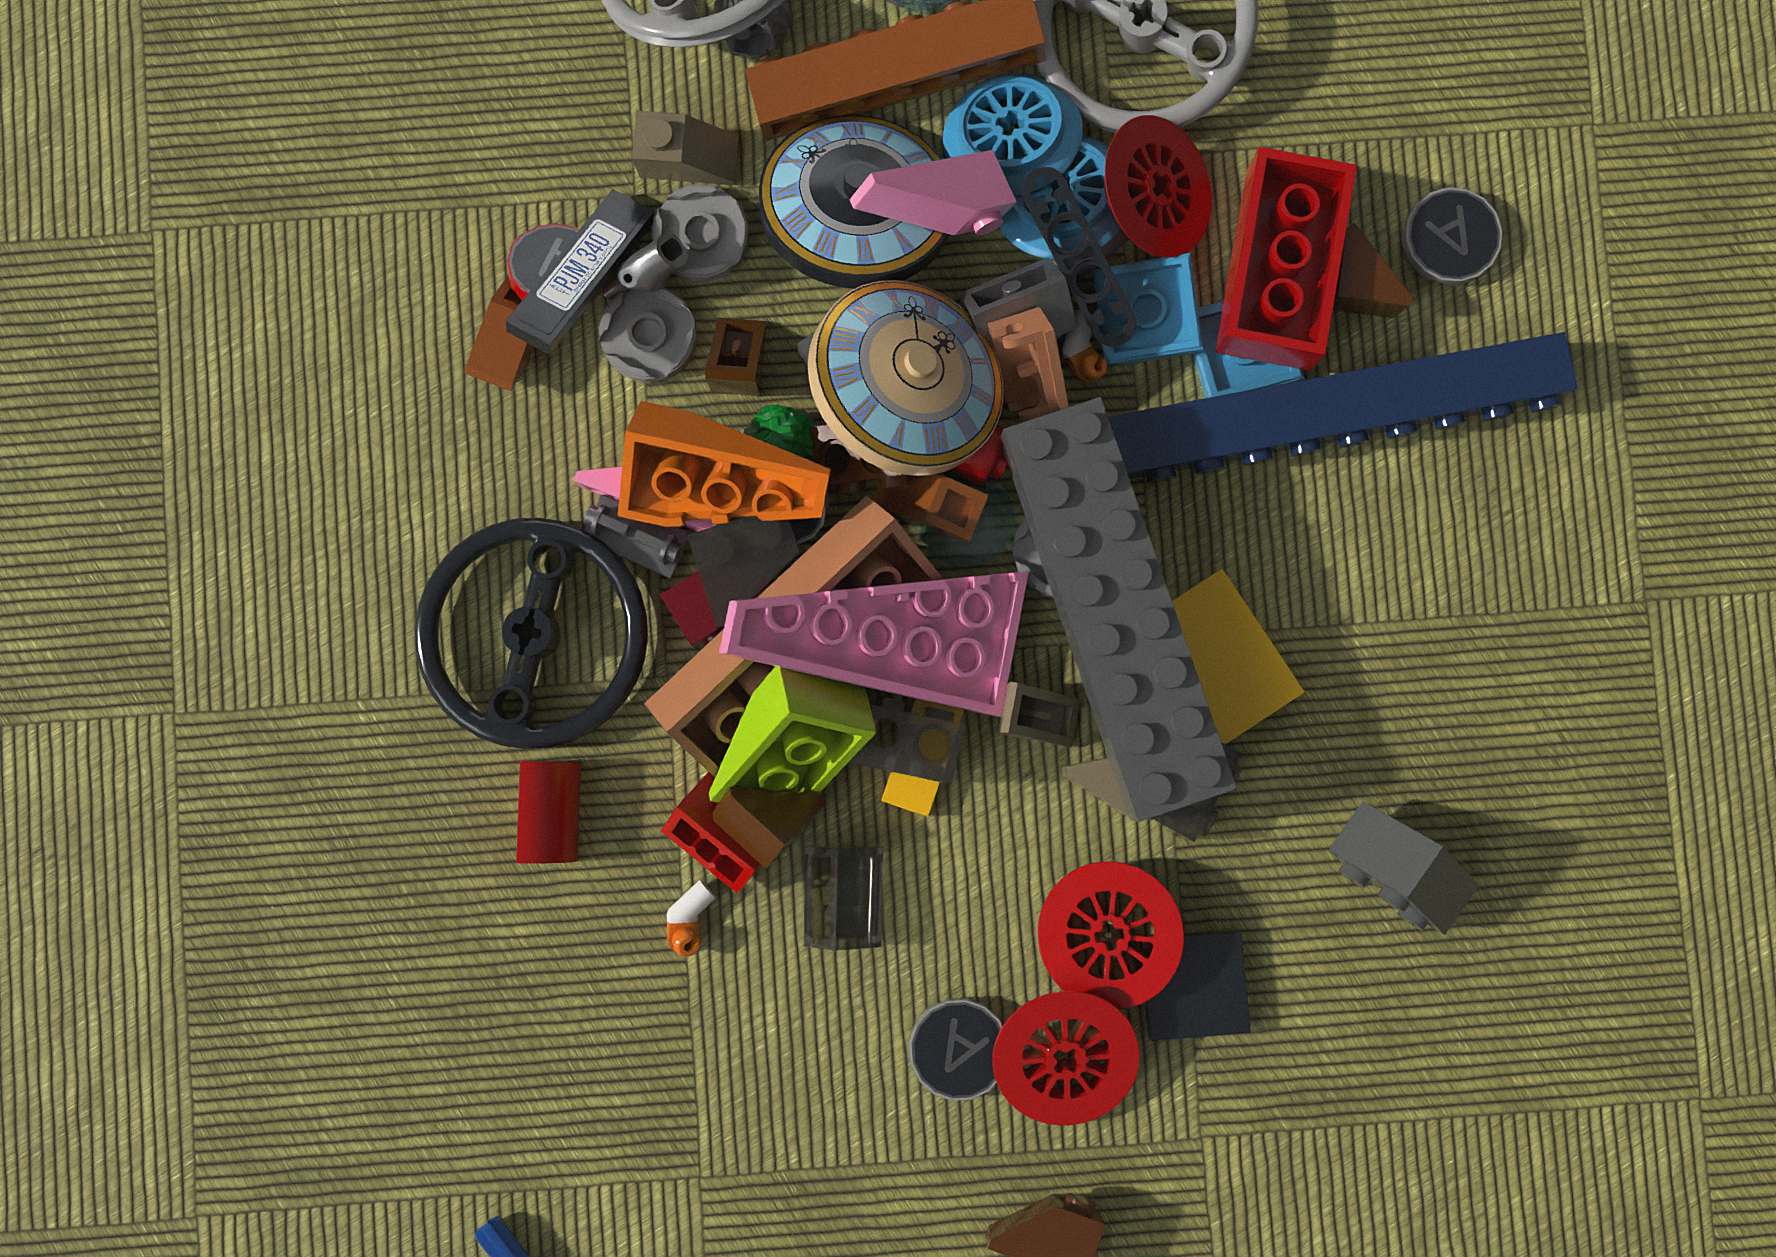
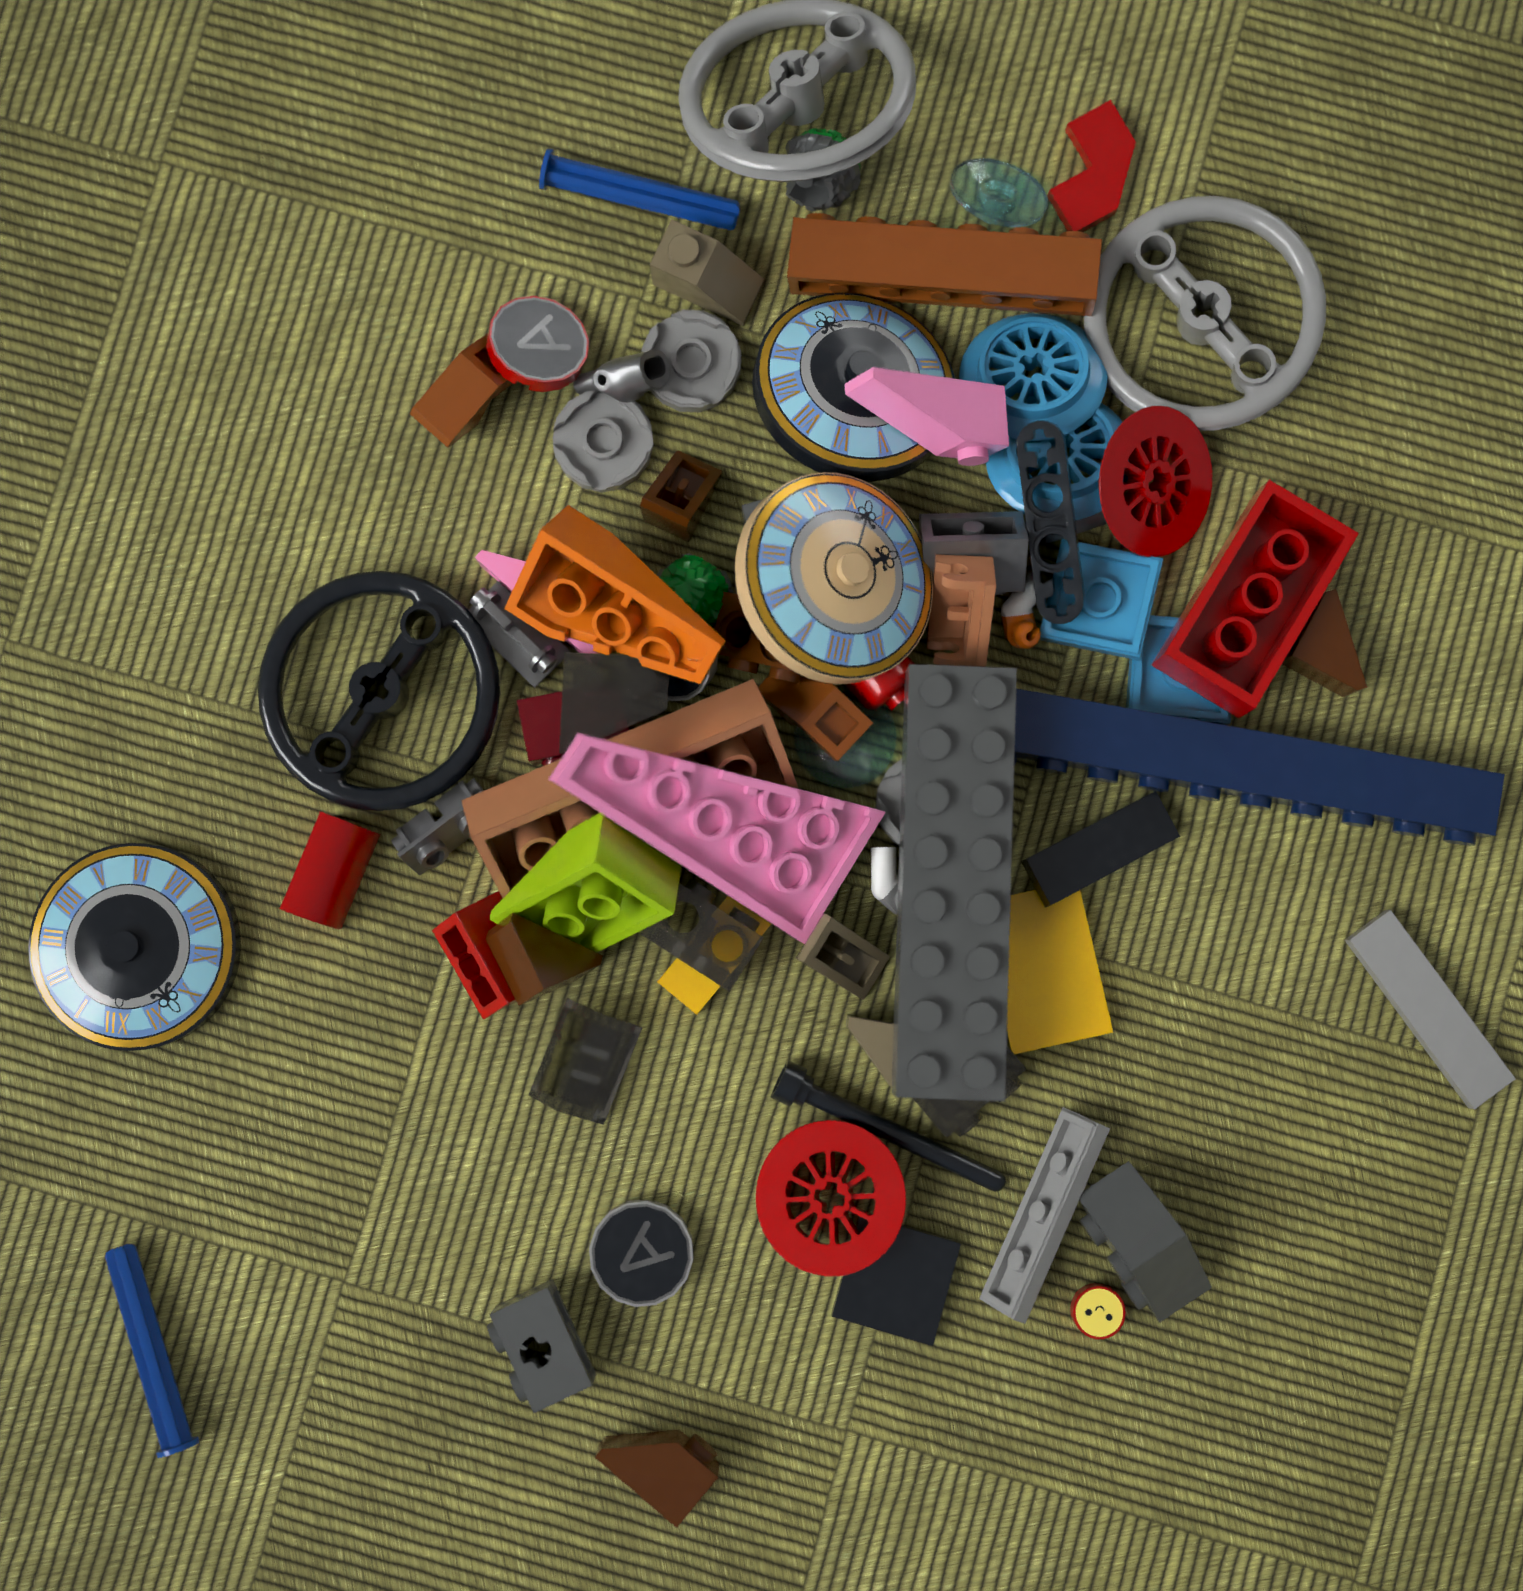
camera: 20 degrees right, 0 degrees up
(396, 947) = (134, 946): none -> dish
(580, 272) = (558, 356): tile -> none
(596, 98) = (638, 191): none -> blue axle
(628, 753) = (427, 842): none -> flat silver hinge
(683, 919) = (421, 1025): arm -> none
(929, 1176) = (565, 1365): none -> dark grey brick
(1042, 848) = (798, 1087): none -> black piece
(1049, 631) = (884, 876): none -> white arm
(1094, 1095) = (725, 1347): red piece -> none
(1231, 533) = (1100, 849): none -> black tile
(1305, 878) = (1044, 1215): none -> light grey tile
(1384, 945) = (1097, 1311): none -> light yellow tile
(1451, 236) = (1430, 637): black tile -> none
(1575, 566) = (1430, 1009): none -> light grey tile

